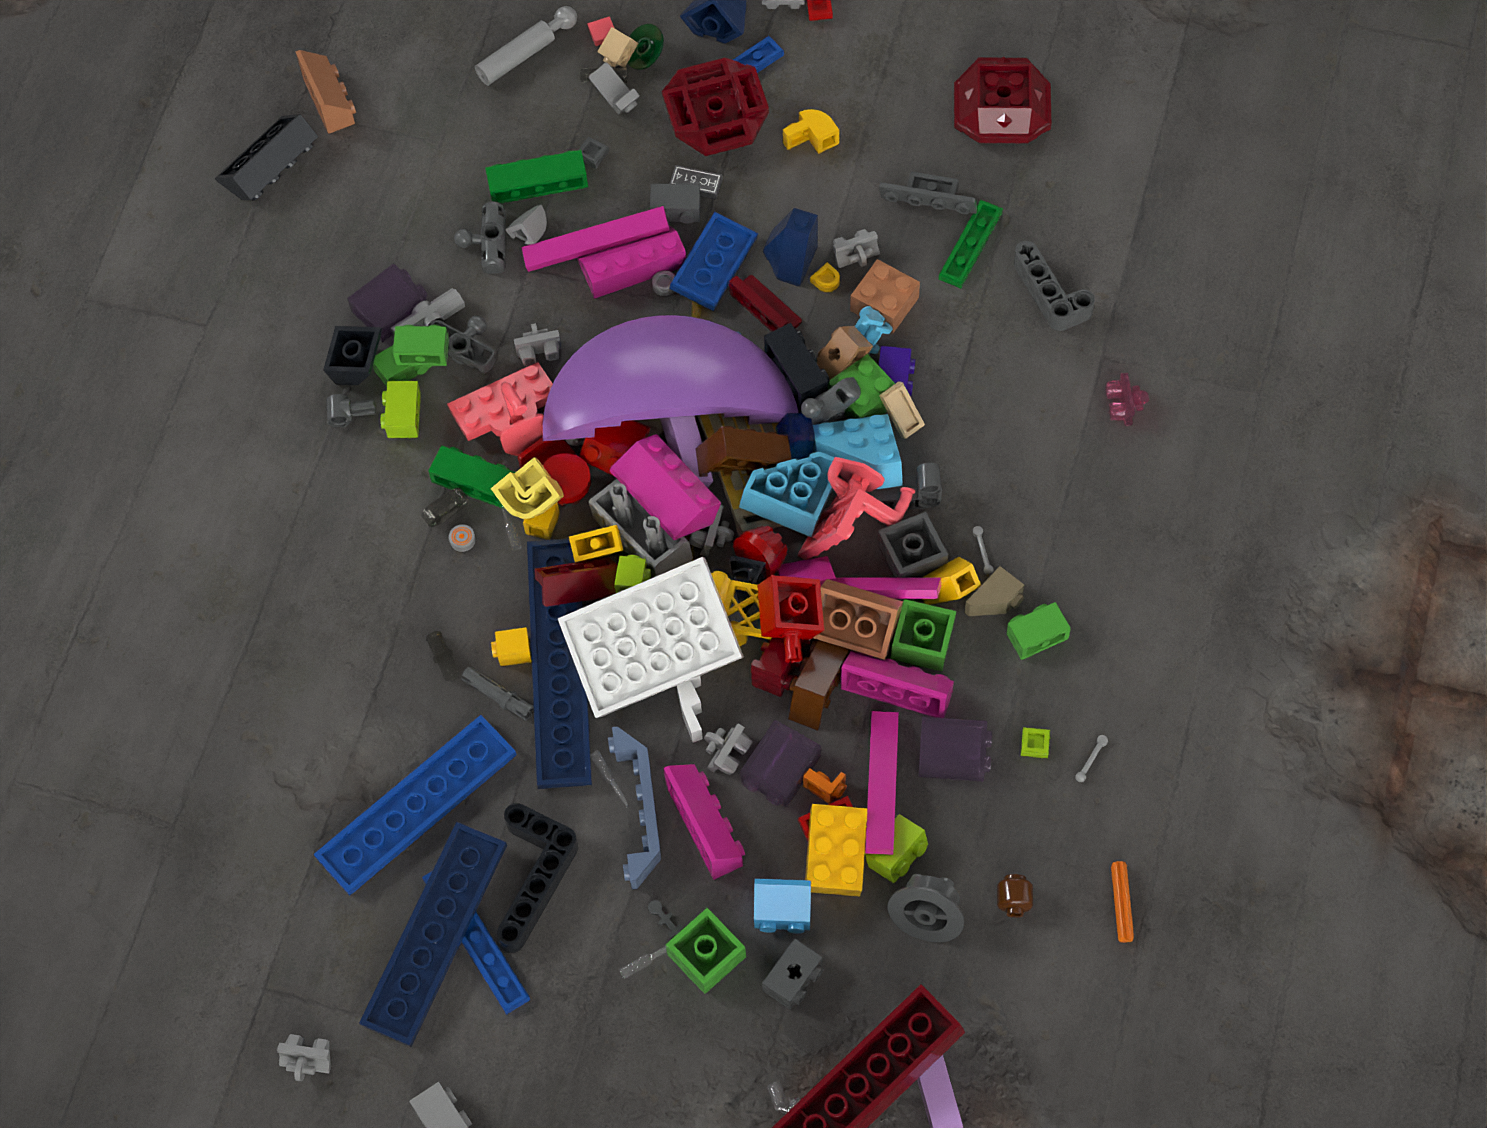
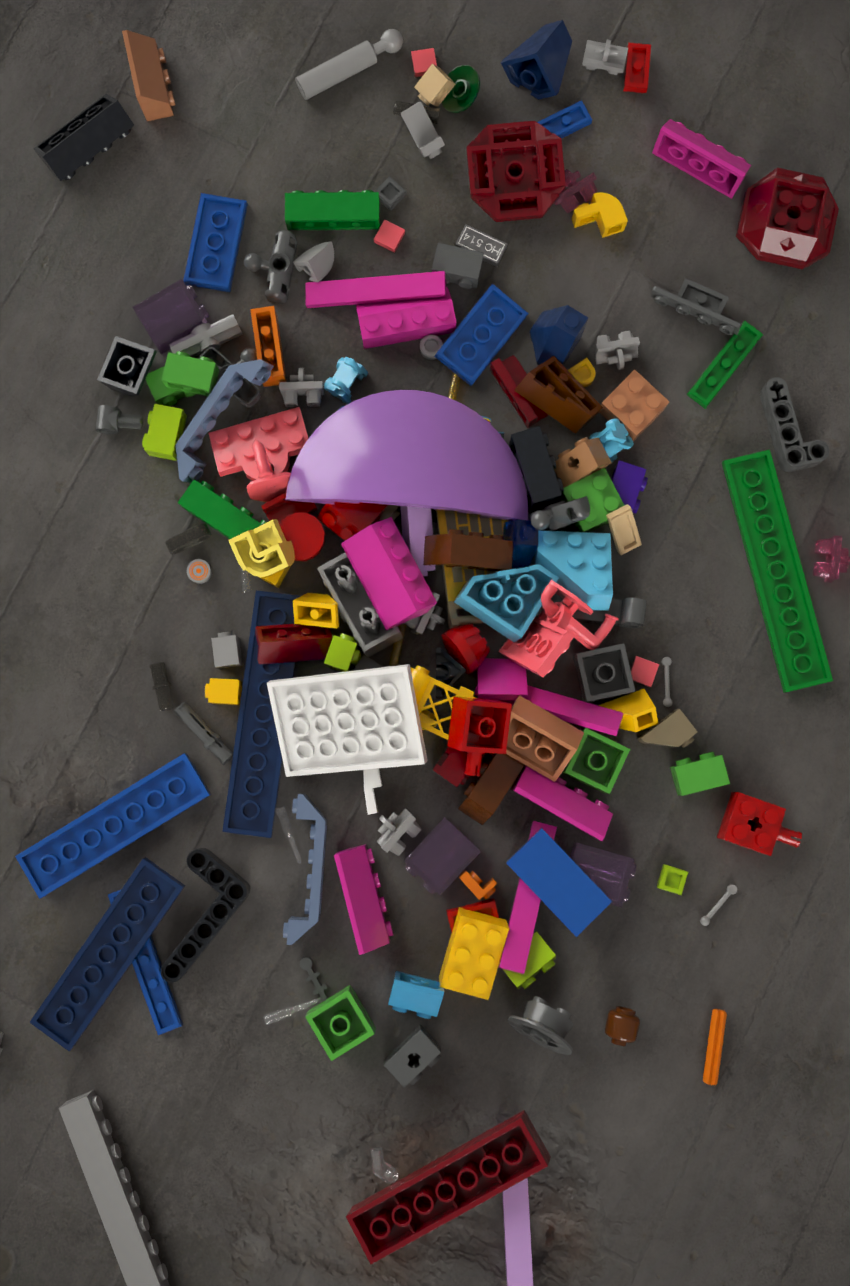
camera: 10 degrees right, 20 degrees up
(420, 228) = (215, 242): none -> blue tile
(487, 327) = (189, 465): none -> sand blue slope
(495, 309) = (269, 342): none -> orange brick
(507, 607) = (226, 650): none -> light grey brick
(580, 321) = (344, 377): none -> medium azure piece
(599, 190) = (389, 236): none -> coral tile
(774, 121) = (585, 186): none -> clear pink hips
(806, 298) = (559, 395): none -> reddish brown wedge
(900, 64) = (700, 158): none -> dark pink slope
(910, 756) = (558, 882): none -> blue tile
(956, 544) = (643, 671): none -> coral tile
(1072, 423) = (777, 571): none -> green plate
(1120, 668) = (766, 828): none -> red brick

